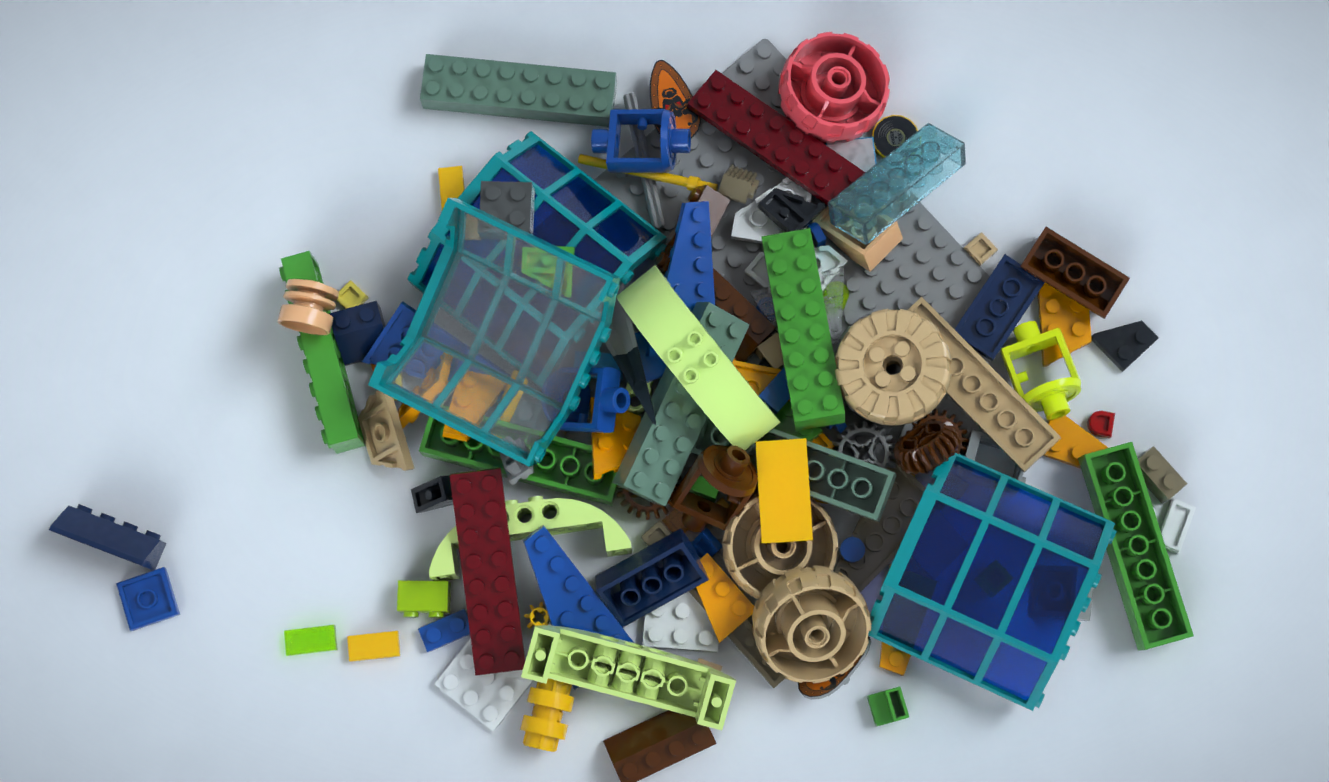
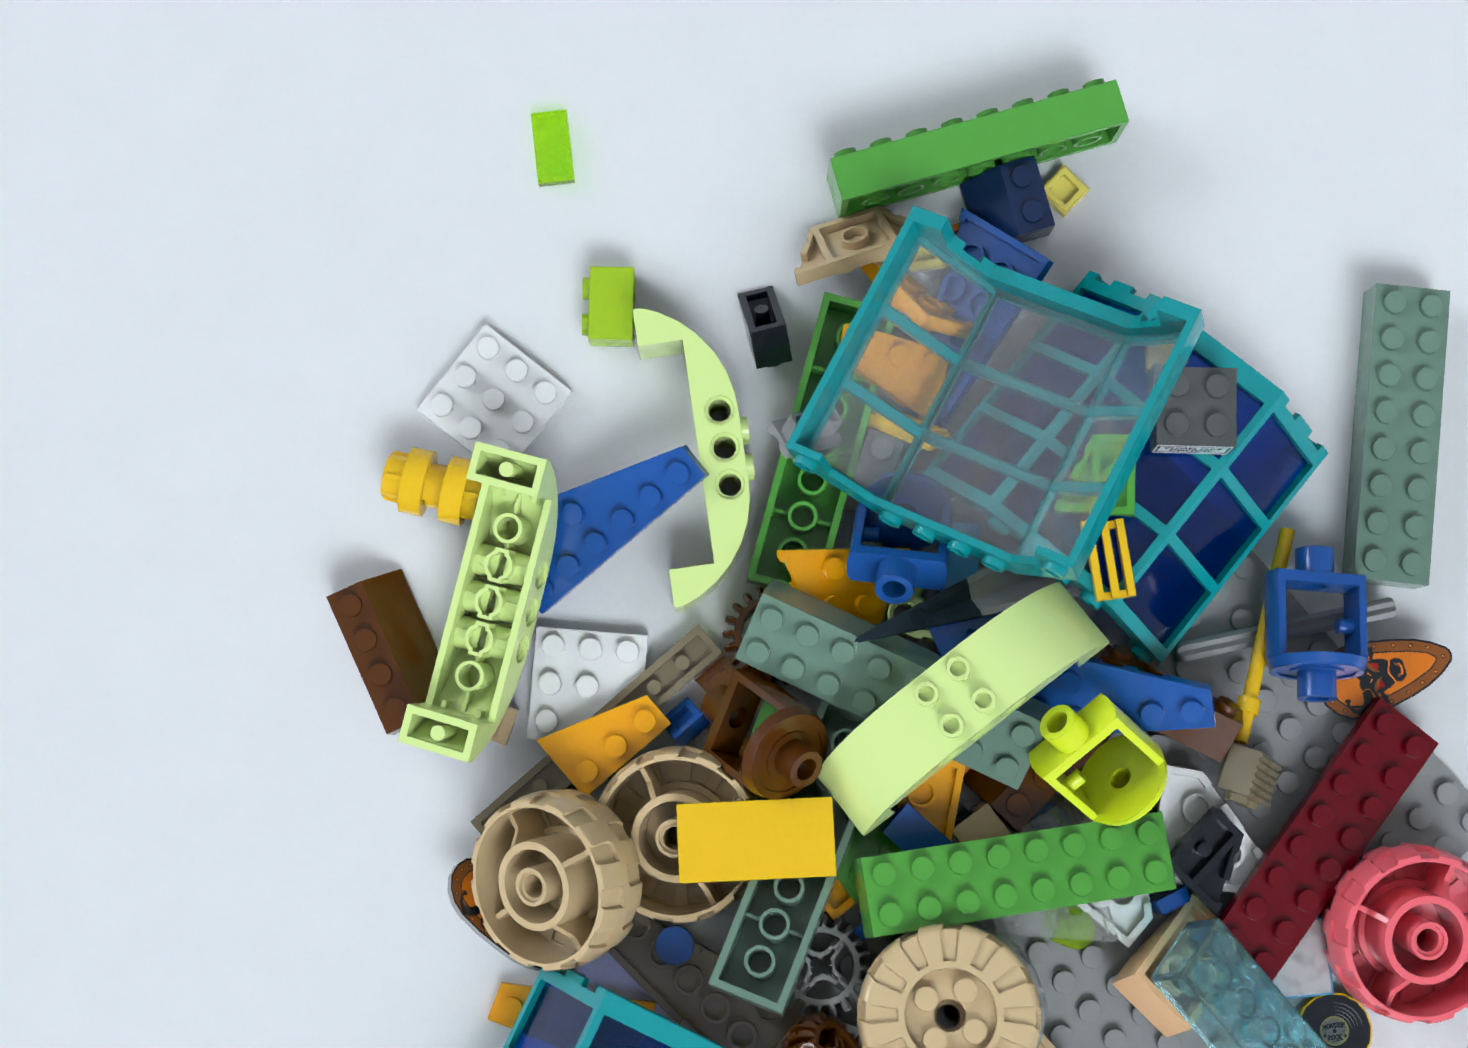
camera: 90 degrees right, 5 degrees up
(308, 302) = (1037, 117): light nougat wheel -> none
(373, 646) = (542, 237): yellow tile -> none
(445, 630) = (564, 340): blue plate -> none
(451, 183) = (1242, 335): yellow tile -> none
(488, 571) = (644, 394): dark red plate -> none
(532, 617) = (582, 465): yellow gear -> none
(607, 253) = (1130, 591): none -> yellow tile
(651, 578) = (633, 638): dark blue slope -> none
(737, 262) = (1119, 778): none -> neon yellow piece
(888, 706) = (440, 994): bright green piece -> none

